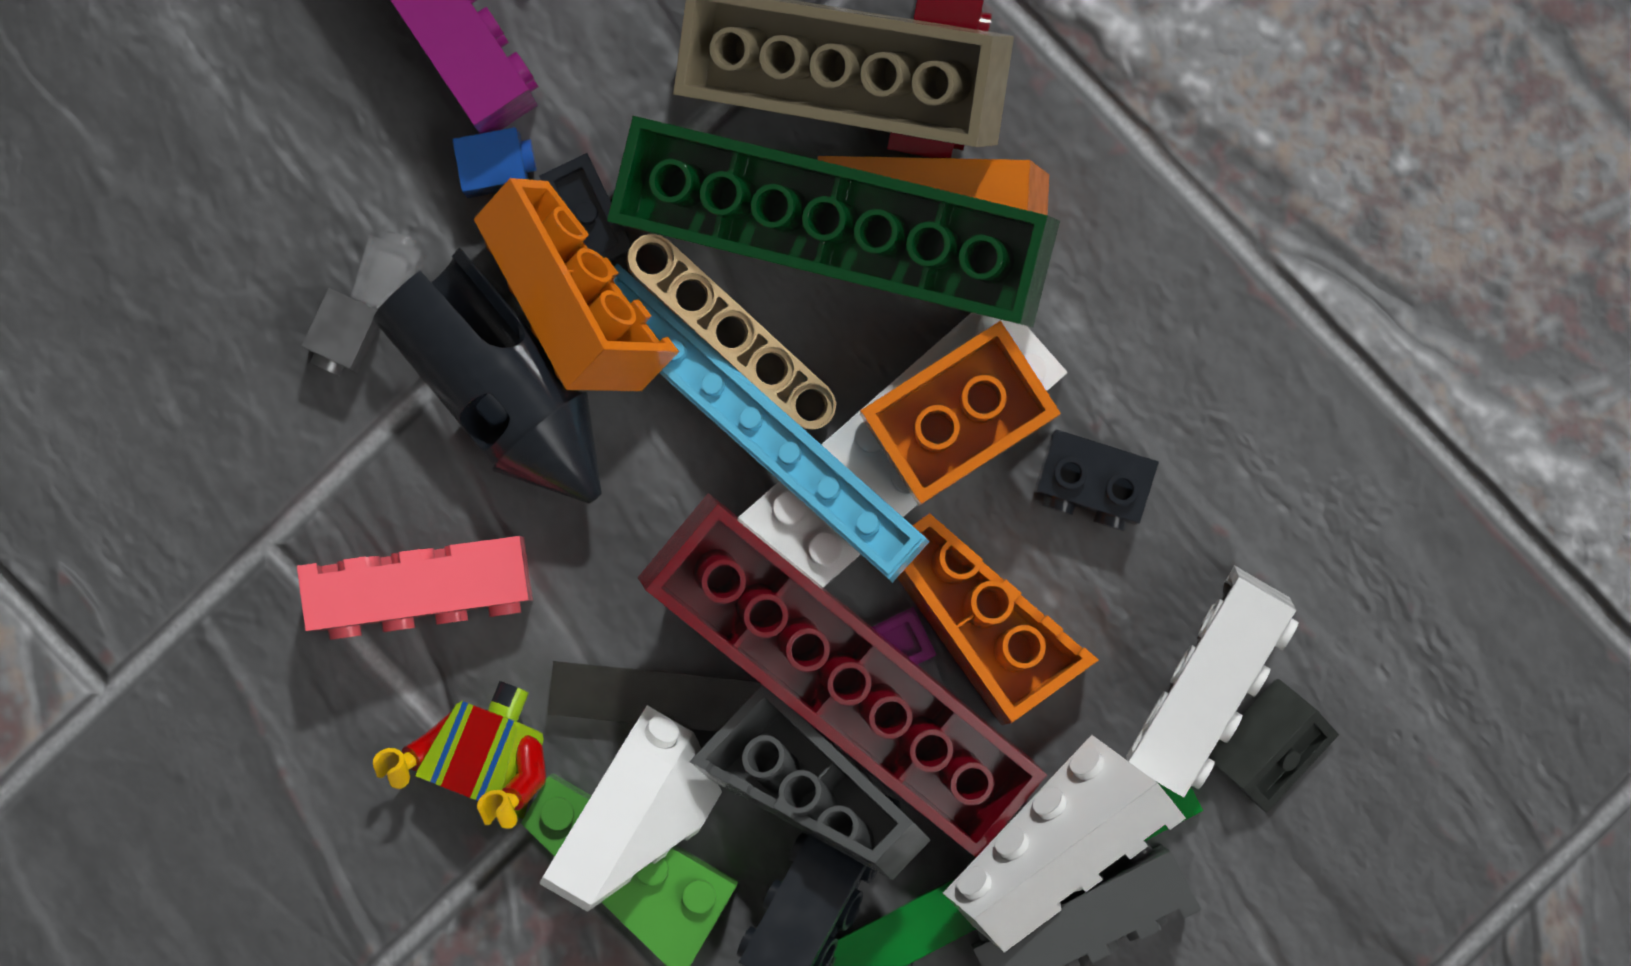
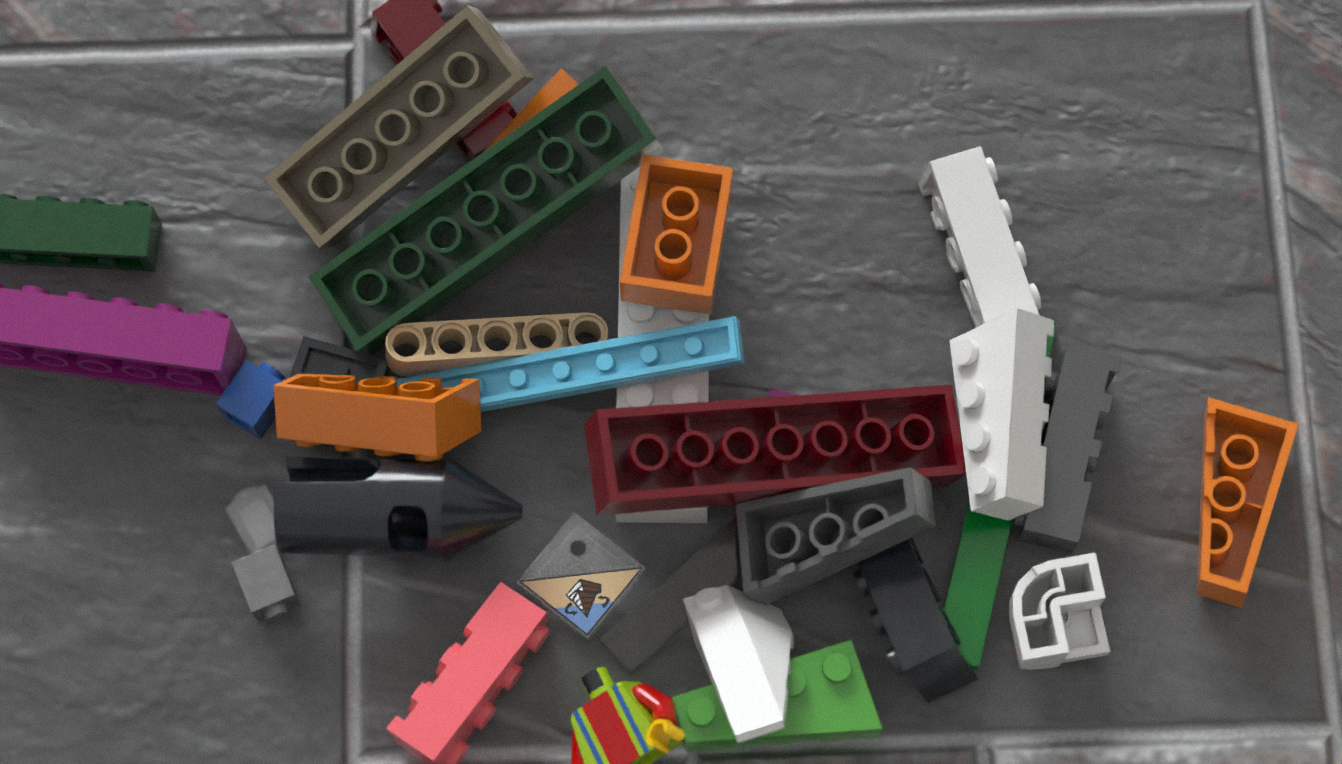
camera: 50 degrees left, 15 degrees down
(593, 594) = (581, 576): none -> tile
(988, 627) = (822, 347): orange wedge -> none
(1095, 479) = (790, 211): black brick -> none
(1273, 744) = (1053, 246): pearl dark grey panel -> none

